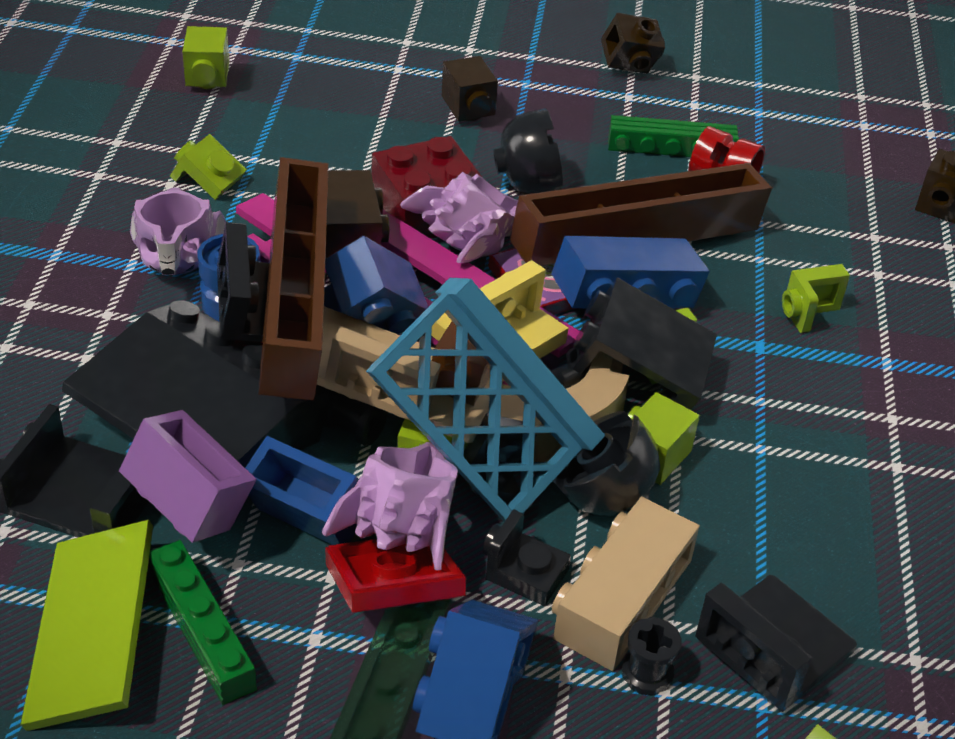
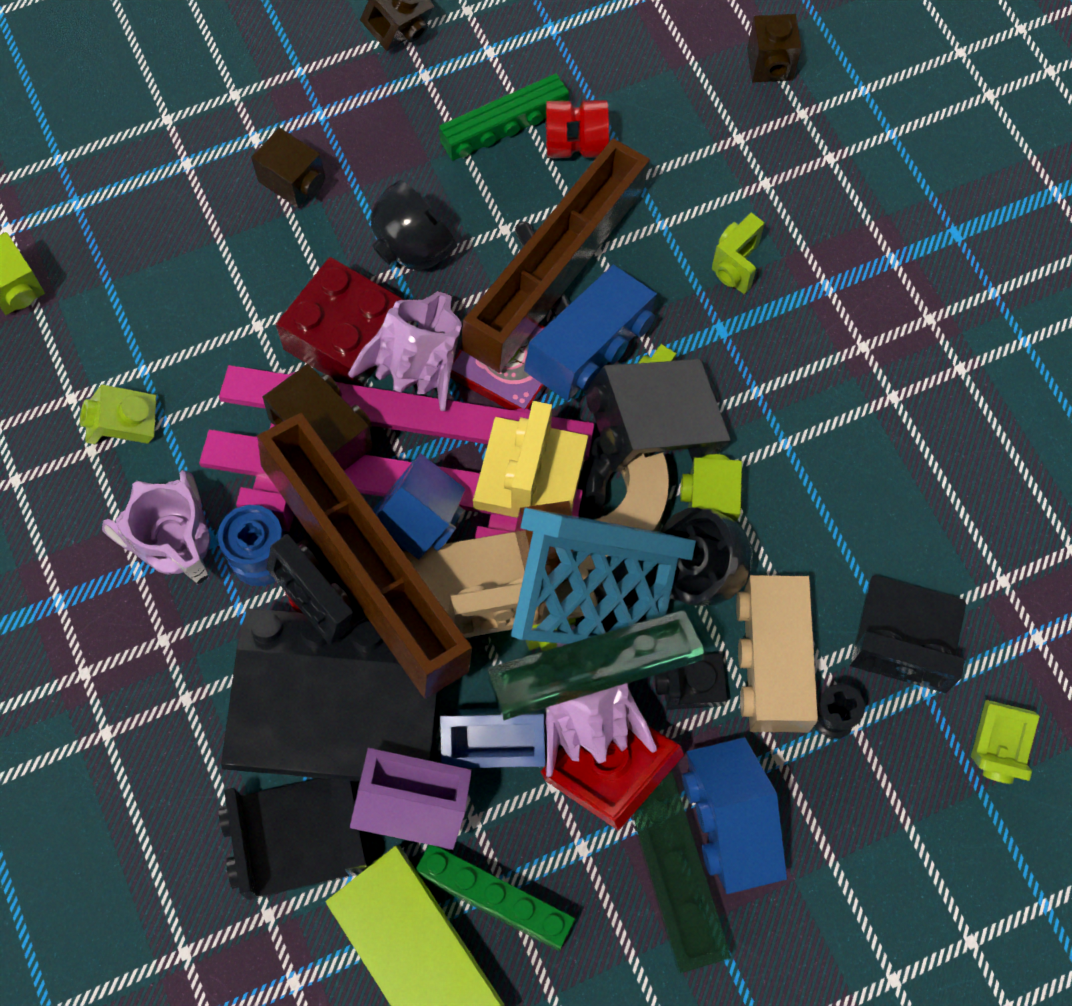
camera: 30 degrees left, 25 degrees up
(413, 444) = (594, 664): none -> clear green plate

